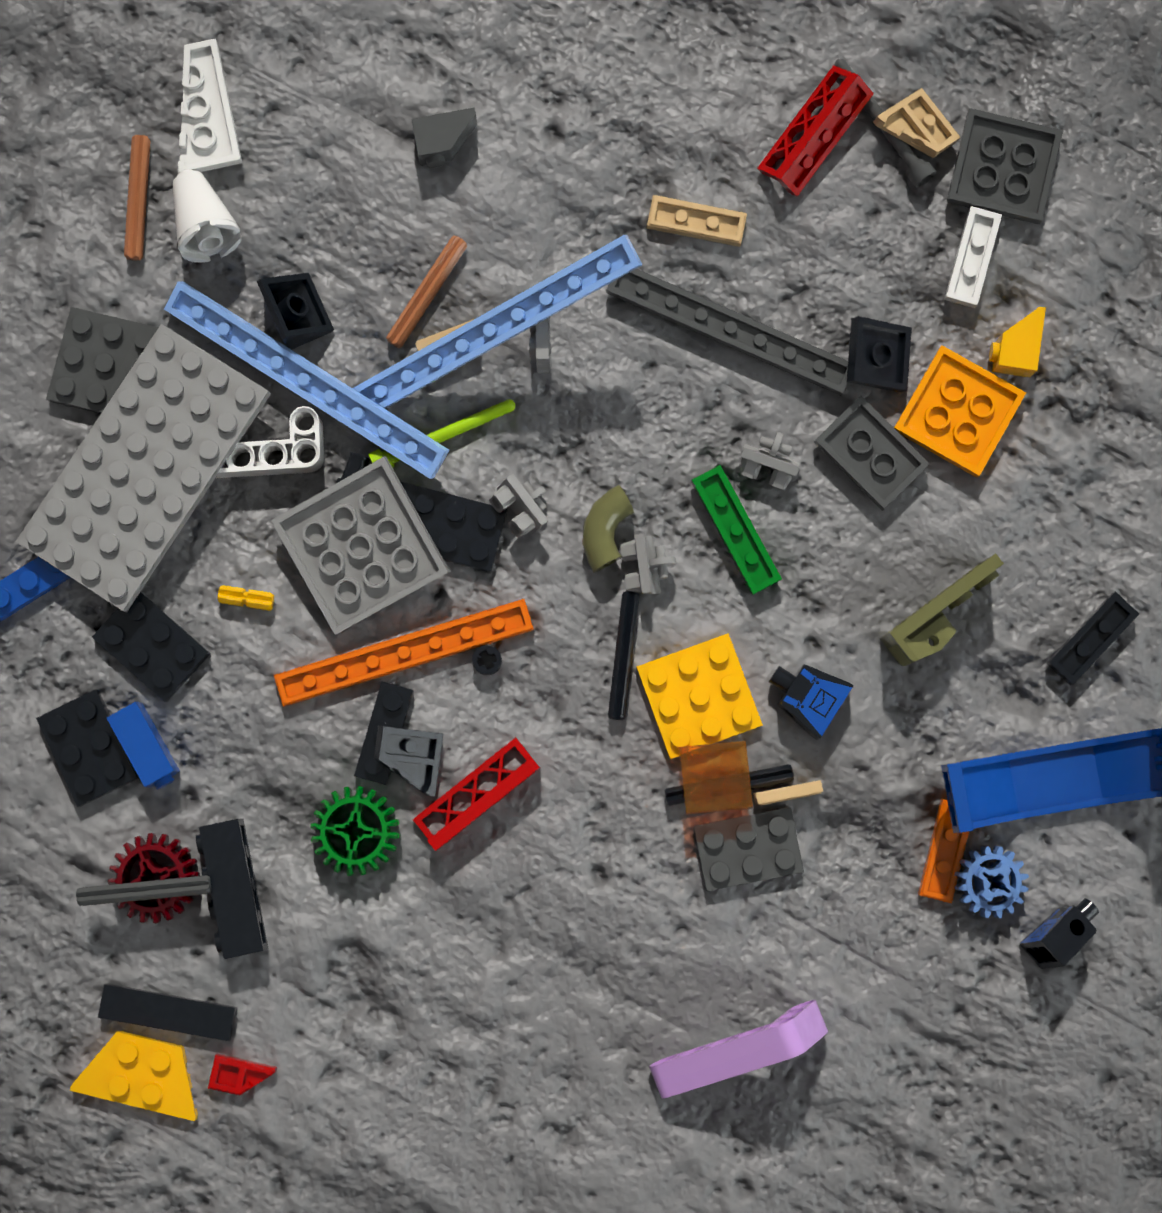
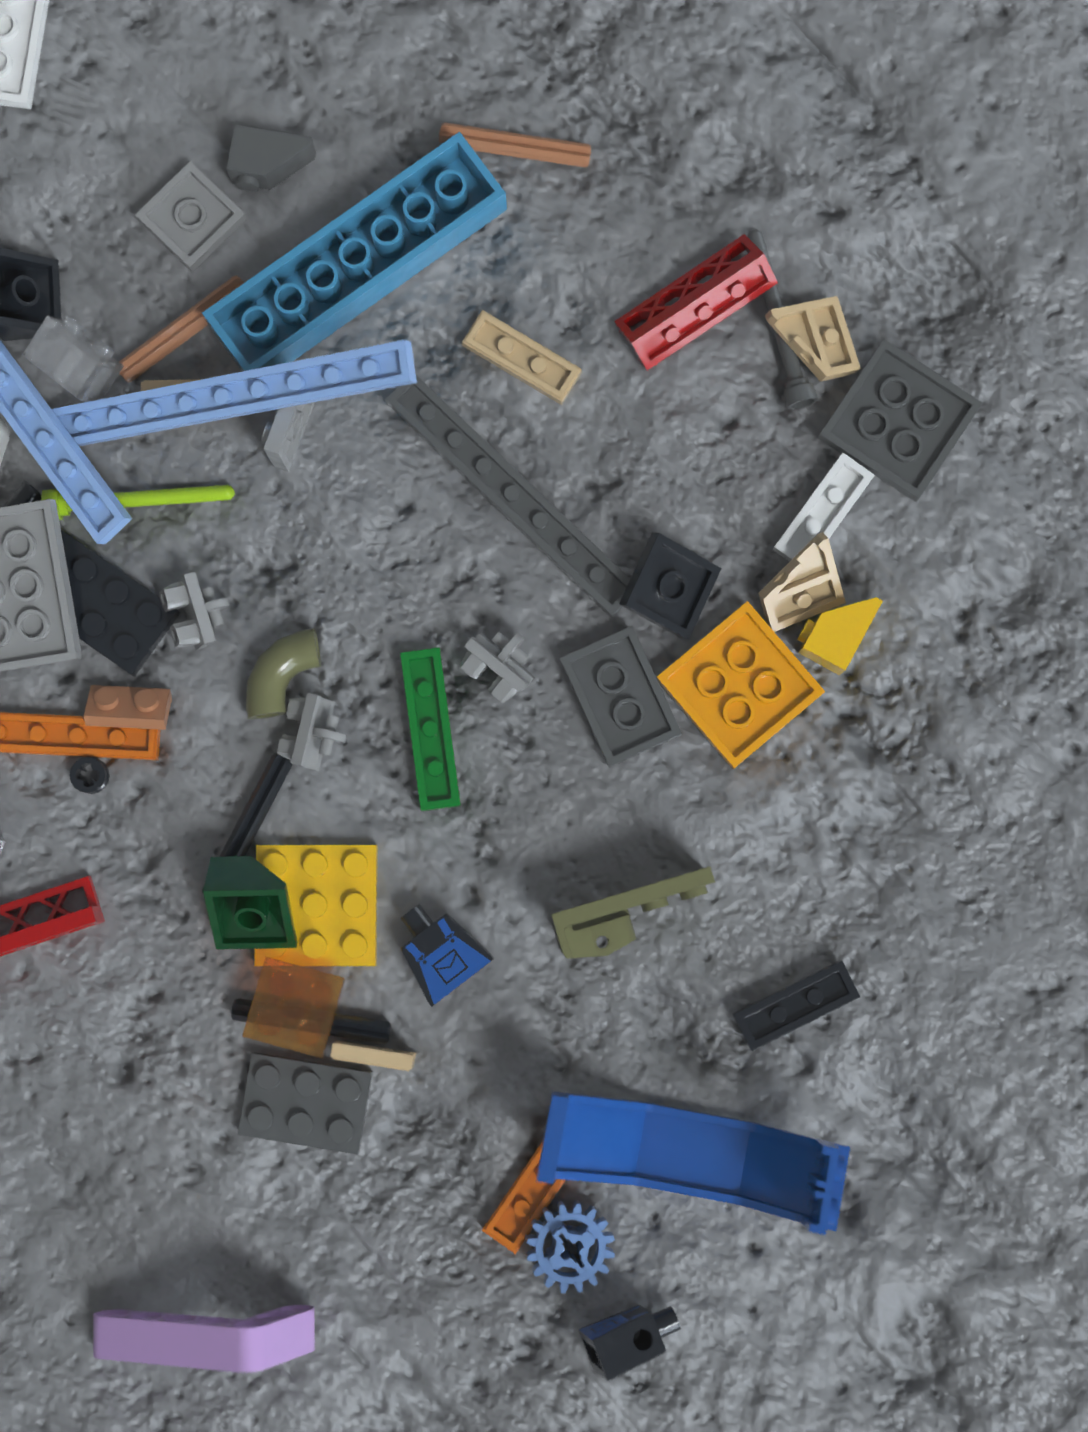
camera: 20 degrees right, 0 degrees up
(354, 344) = (73, 359): none -> clear brick
(401, 202) = (191, 216): none -> light grey plate
(497, 597) = (127, 707): none -> nougat plate
(544, 189) = (358, 257): none -> dark azure brick
(629, 58) = (520, 145): none -> nougat axle
(654, 711) = (247, 905): none -> dark green slope
(980, 318) = (803, 586): none -> tan wing

